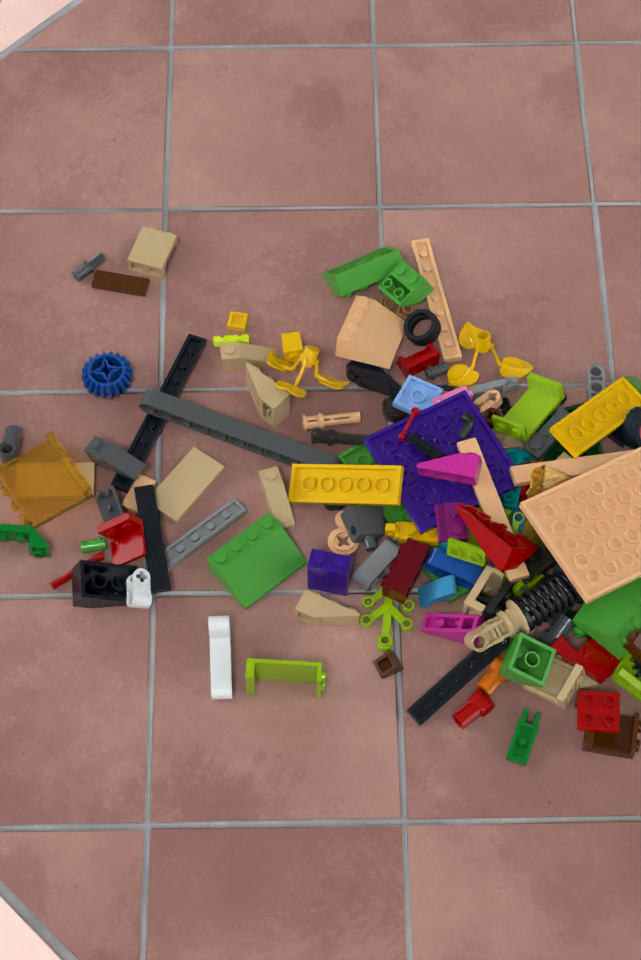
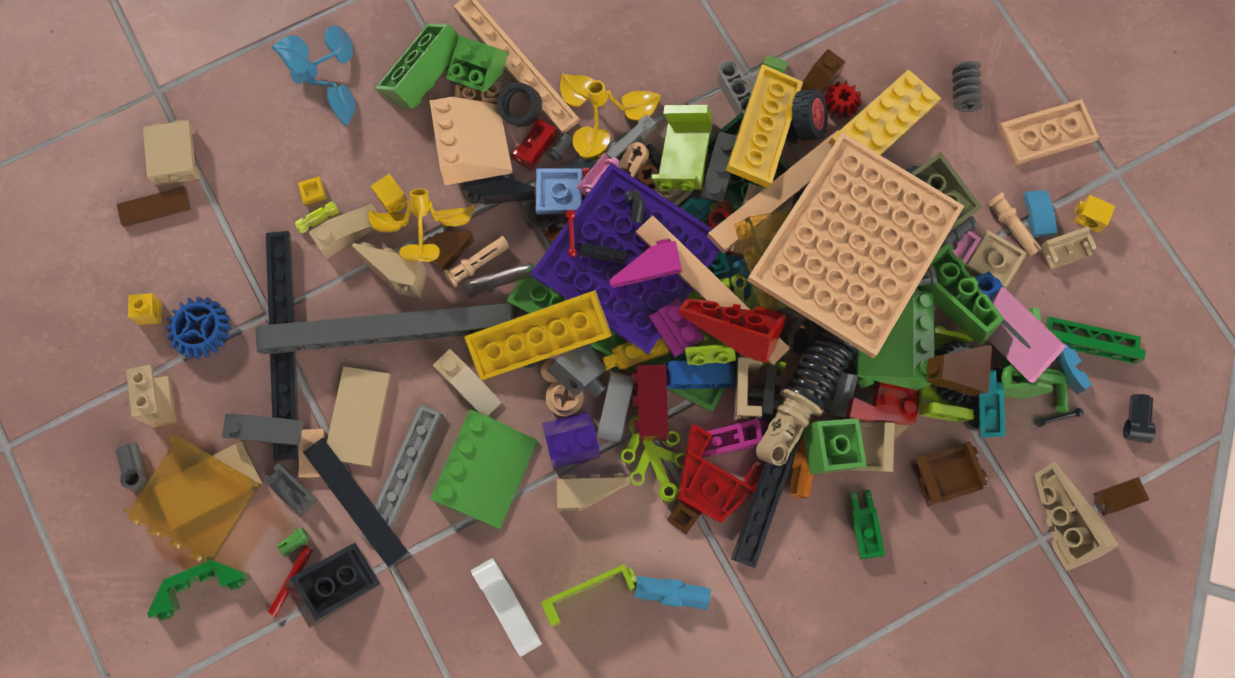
camera: 30 degrees left, 15 degrees up
(48, 404) = (150, 397): none -> tan panel
(77, 345) = (145, 309): none -> yellow brick
(88, 266) = (106, 203): dark grey axle -> none
(125, 537) = (327, 519): red bracket -> none
(139, 589) = (374, 575): white piece -> none
(275, 220) = (295, 53): none -> dark azure plant
(315, 401) = (451, 247): none -> reddish brown slope
(348, 710) = (672, 592): none -> dark azure piece
(417, 651) = (710, 487): none -> red wing
(437, 590) = (695, 408): dark azure slope -> none
(477, 705) = (801, 517): red piece -> none
(598, 711) = (929, 462): red bracket -> none

